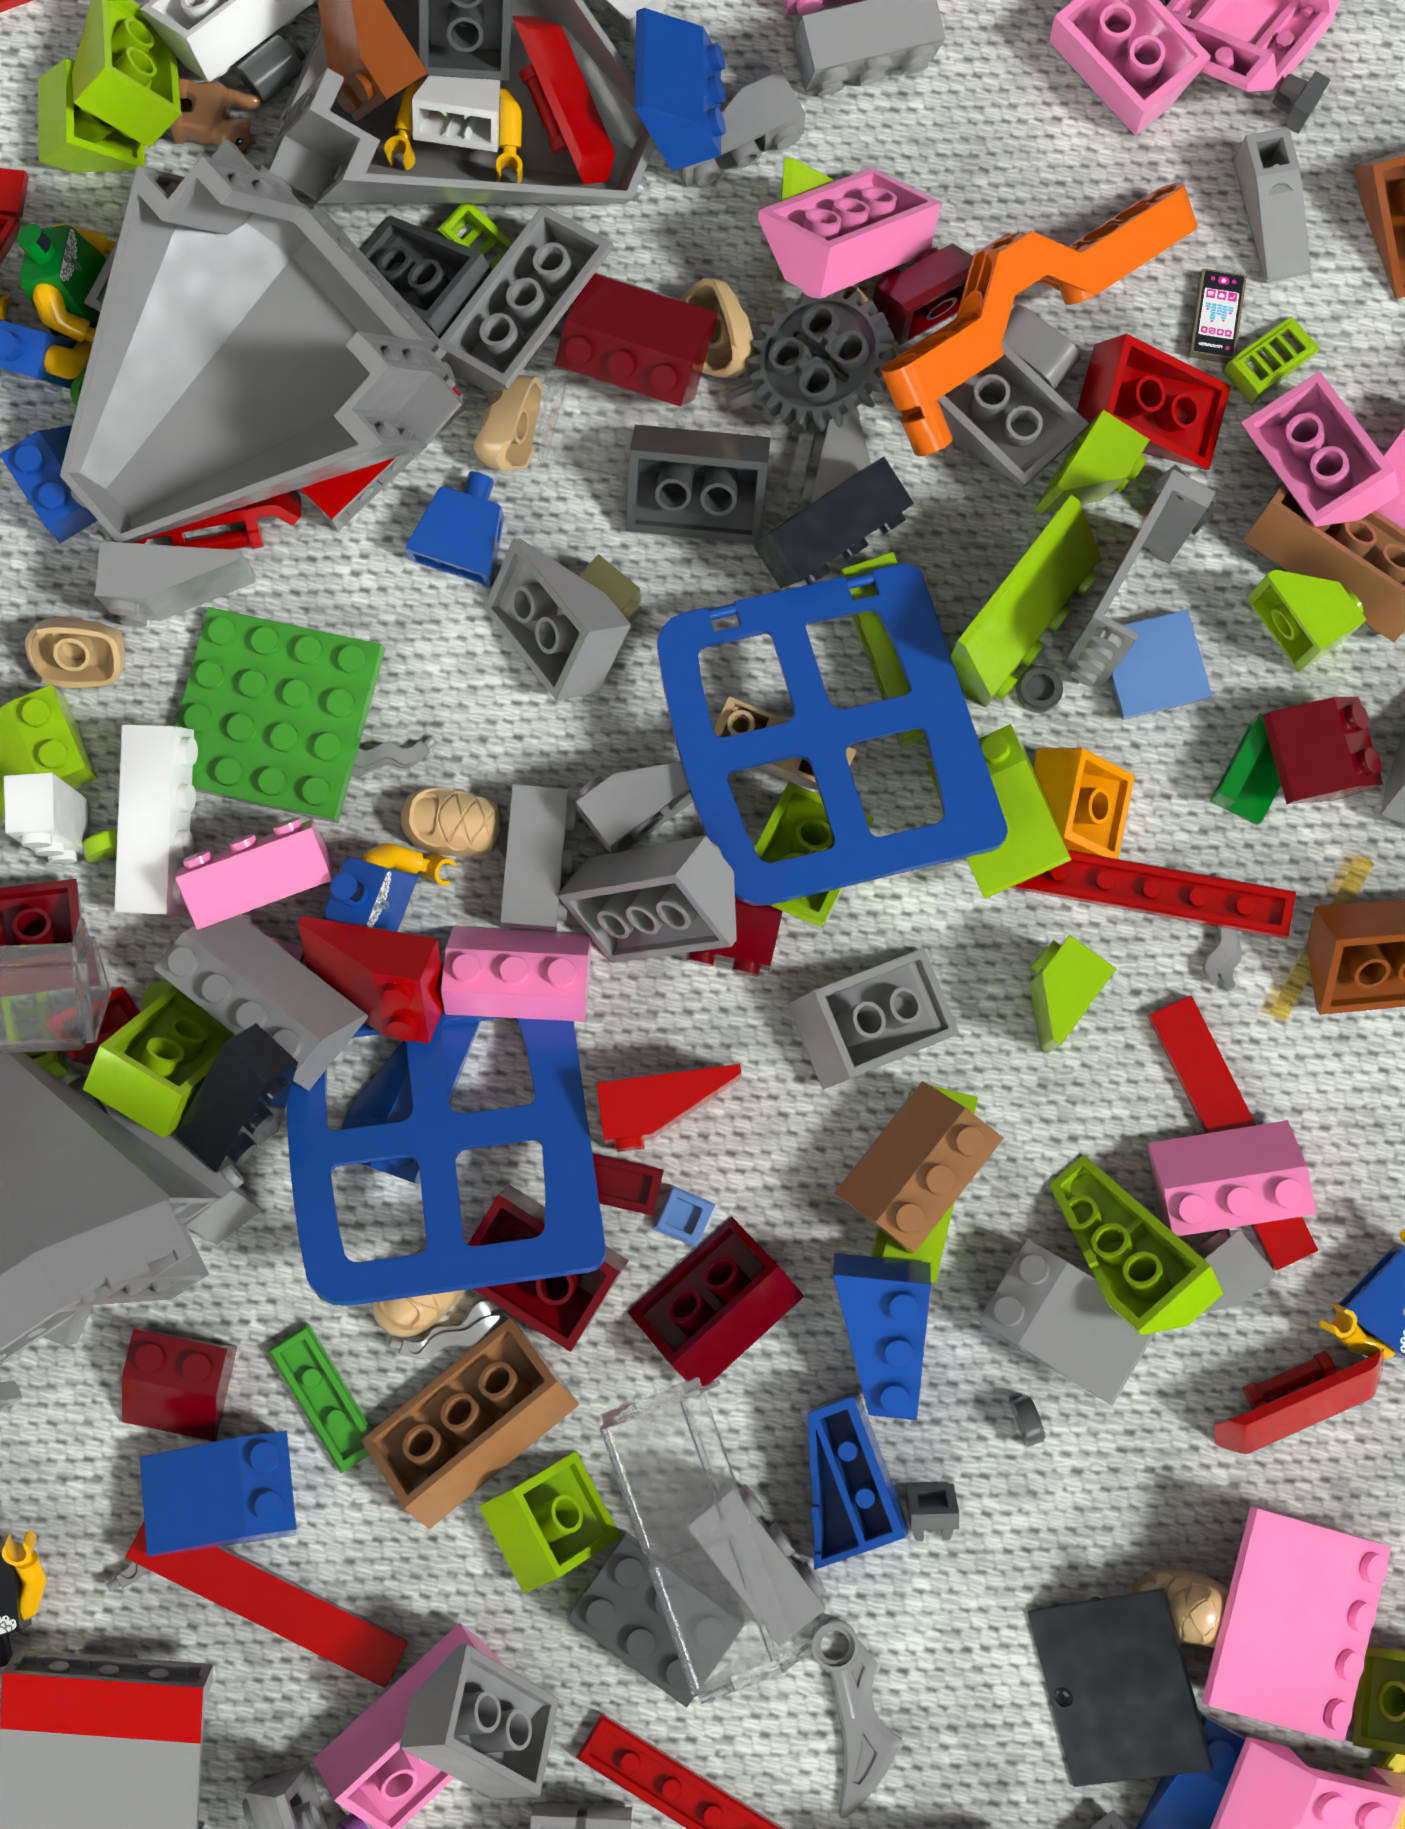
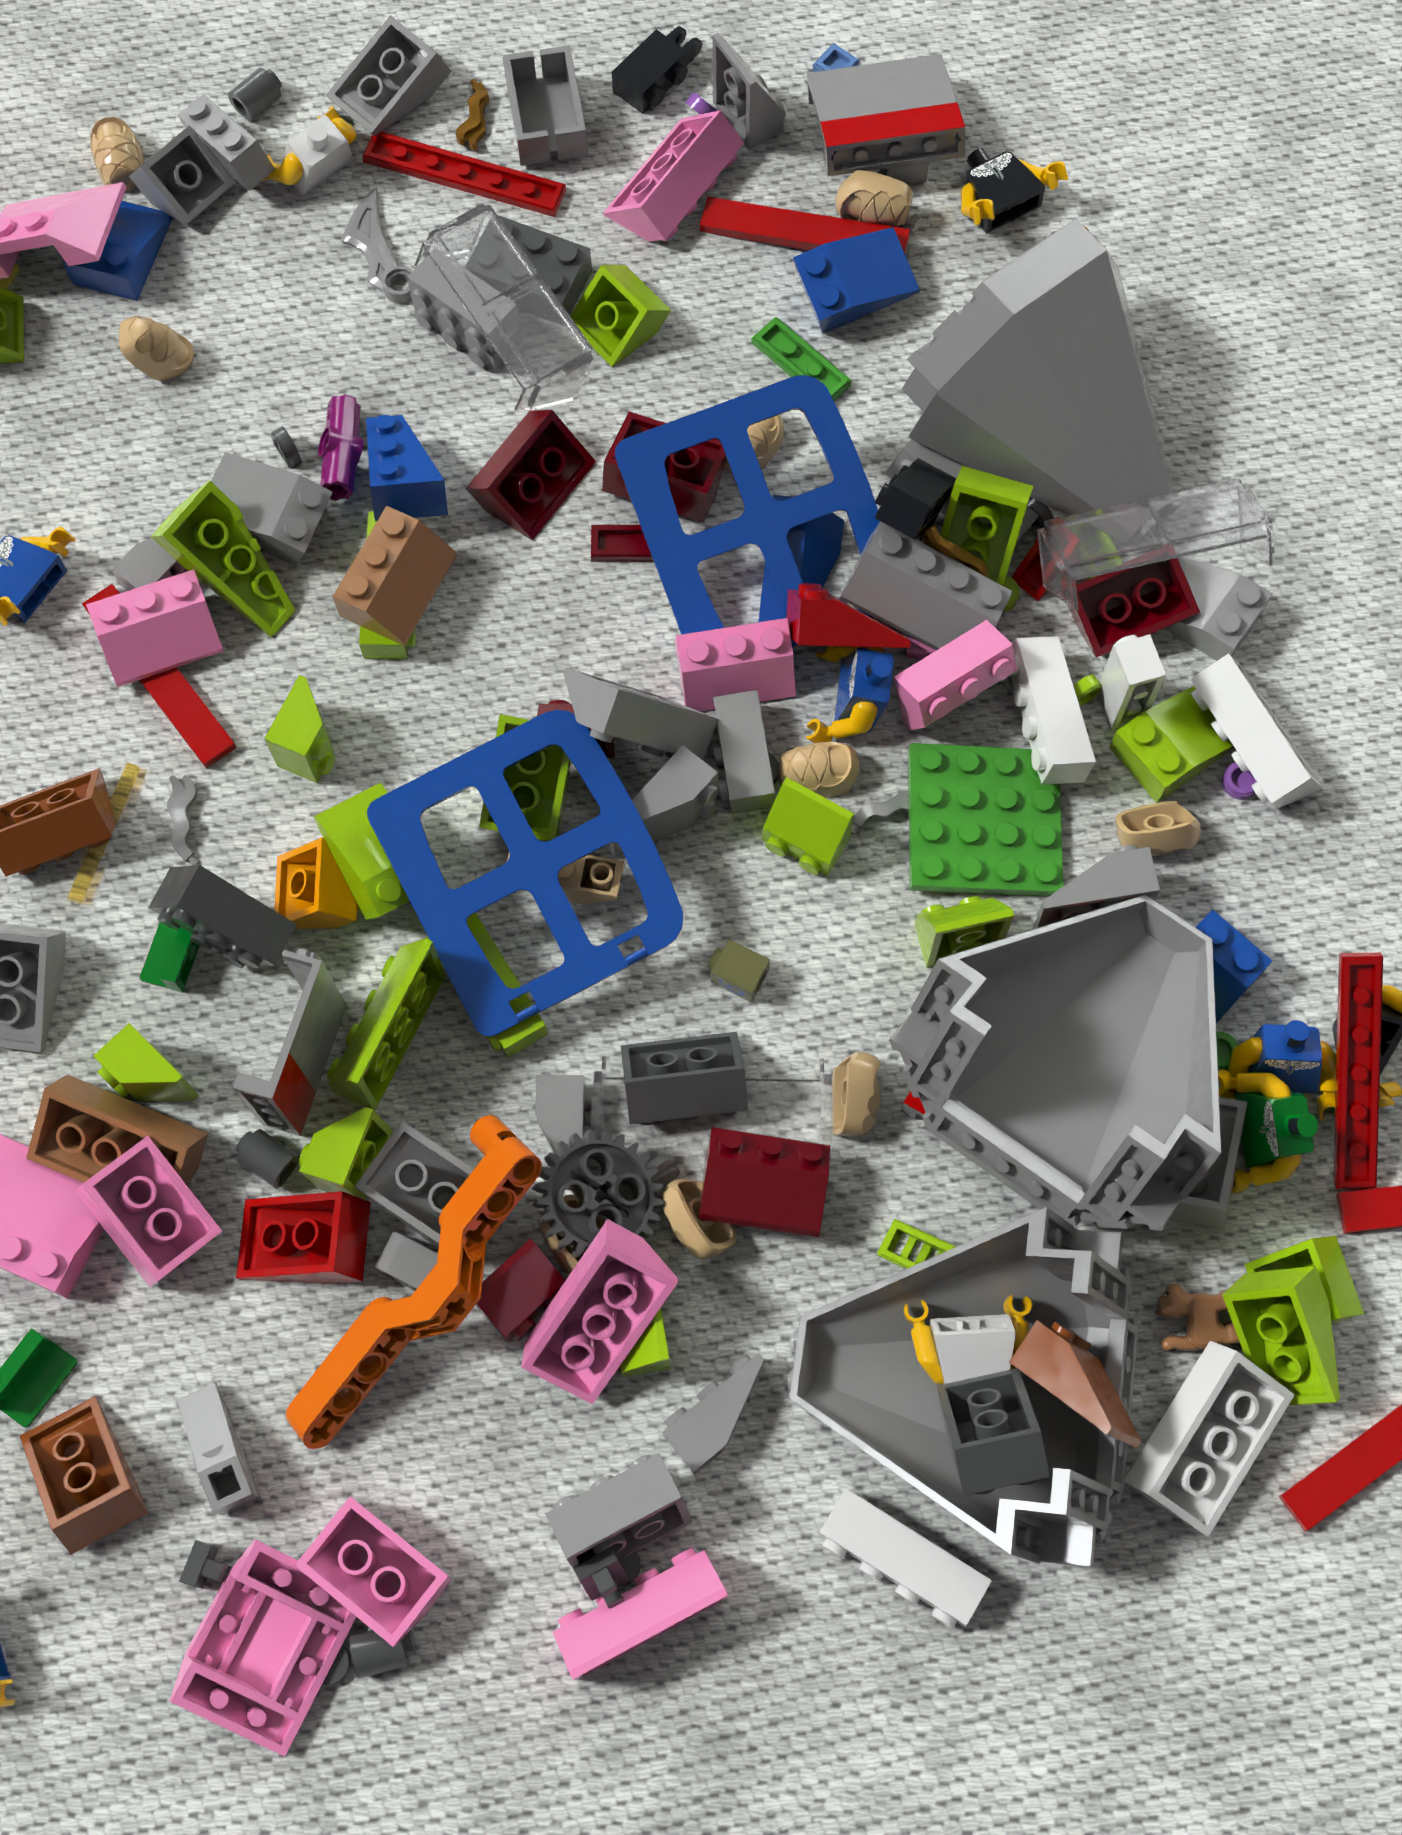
camera: 170 degrees right, 10 degrees down
(160, 1614) = (874, 199): none -> tan piece
(176, 1382) = (895, 341): dark red slope -> none
(199, 1024) = (934, 540): none -> pearl gold hair
(271, 67) = (1161, 1378): dark grey brick -> none
(337, 569) = (961, 927): none -> lime slope
(427, 270) = (957, 1198): dark grey slope -> none
(460, 531) = (872, 995): blue torso -> none
(469, 1423) = (692, 358): medium nougat slope -> none
(482, 1725) = (631, 171): light grey slope -> none
(485, 737) = (807, 828): none -> lime slope
(522, 300) = (868, 1194): light grey slope -> none
(556, 621) = (772, 928): light grey slope -> none
(564, 99) = (884, 1385): red piece -> none
(651, 1104) = (602, 590): red slope -> none
(679, 88) = (782, 1419): blue slope -> none
(684, 1216) = (568, 531): medium blue tile -> none
(834, 525) = (557, 1046): black wedge -> none
(851, 1486) = (405, 374): blue wedge -> none
(873, 1018) = (451, 692): light grey slope -> none
(932, 1509) = (345, 376): dark grey tile -> none
(956, 1397) = (340, 446): none -> magenta piece
(1039, 689) = (362, 977): dark grey tile -> none
(1120, 1688) = (192, 290): black piece -> none
(1160, 667) = (262, 1013): medium blue tile -> none
(1168, 894) = (220, 833): red tile -> none
(1198, 760) = (221, 917): none -> dark grey brick
(1217, 316) = (256, 1340): tile -> none
(1246, 379) = (222, 1308): lime slope -> none
(1296, 1624) = (69, 348): bright pink slope -> none
(1300, 1408) = (97, 512): red piece -> none
(1323, 750) = (119, 962): dark red slope -> none

